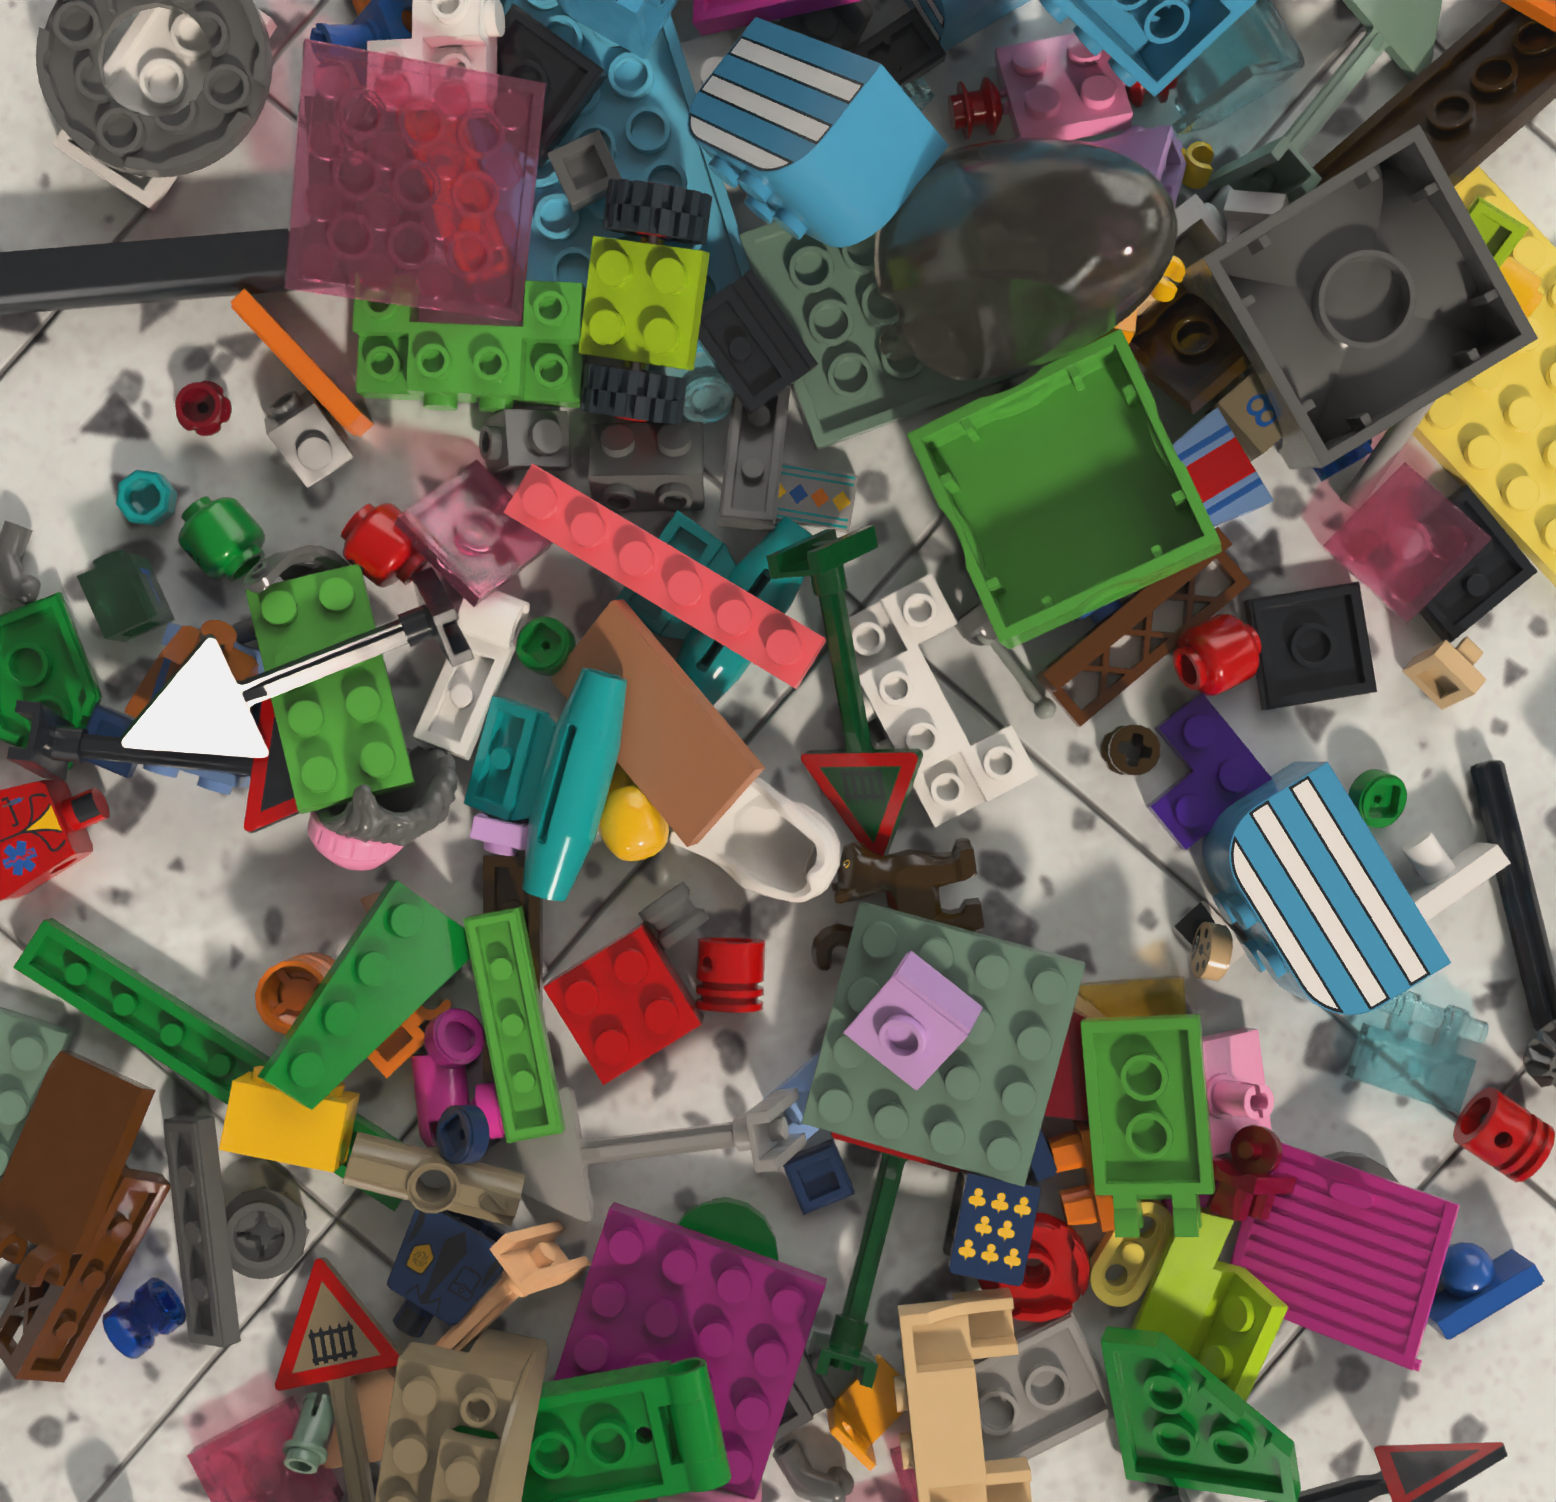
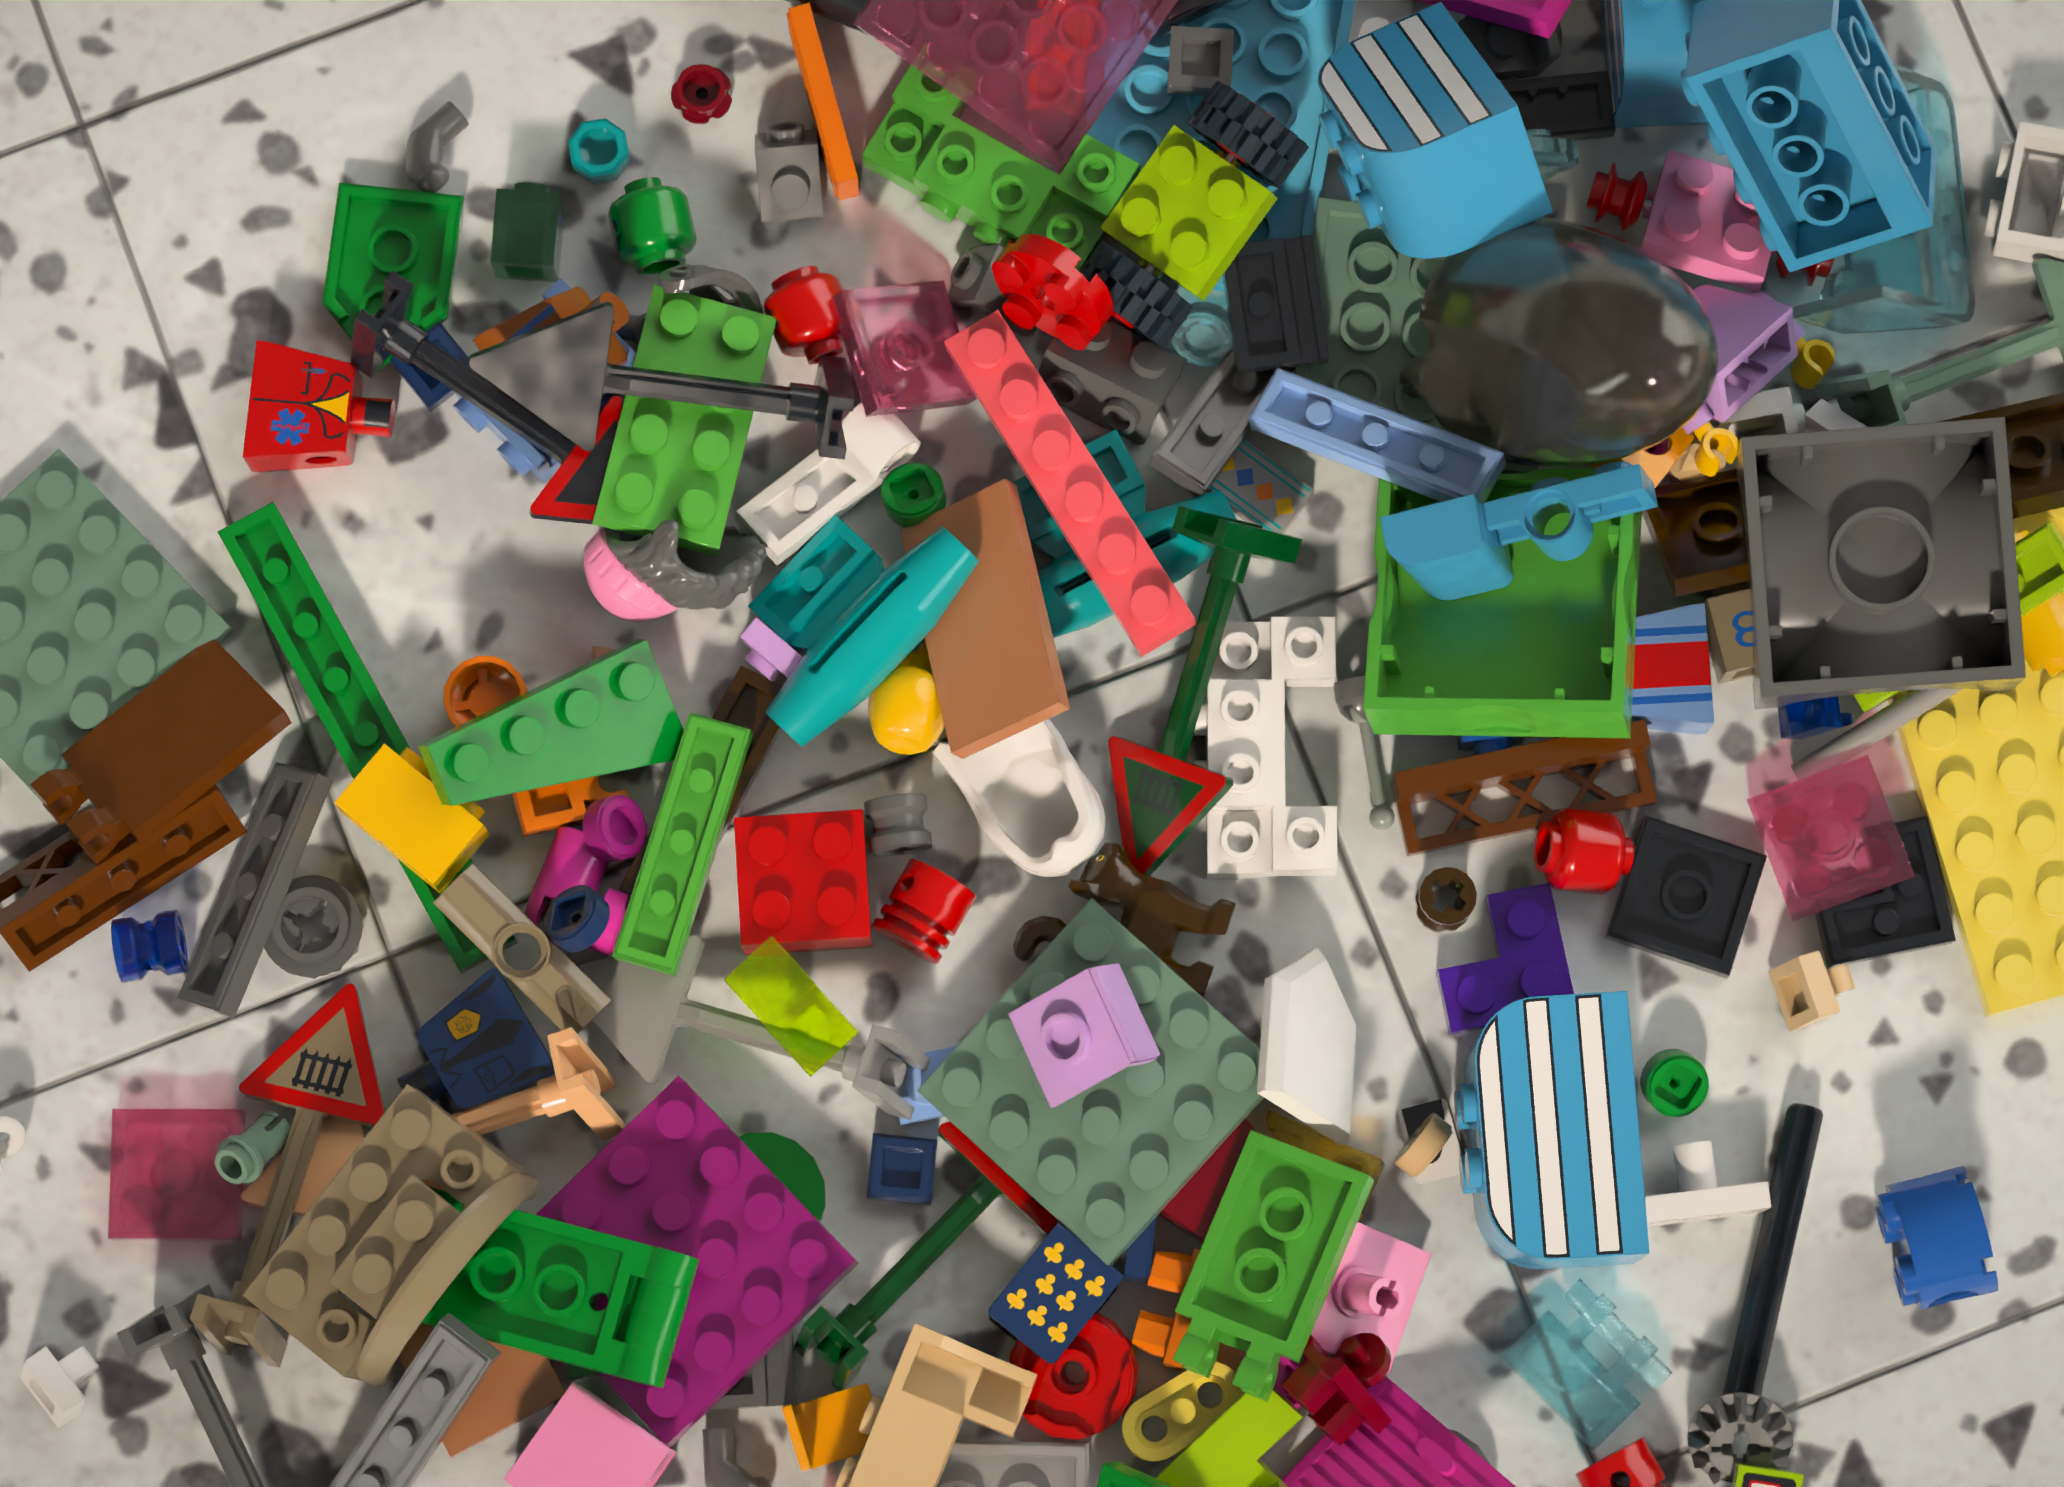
camera: 25 degrees right, 10 degrees down
(567, 430) = (1050, 292): none -> red plate
(670, 1116) = (791, 1006): none -> clear neon green slope
(895, 413) = (1375, 439): none -> light blue tile
(1013, 462) = (1463, 543): none -> dark azure plate
(1087, 927) = (1308, 1046): none -> white tile

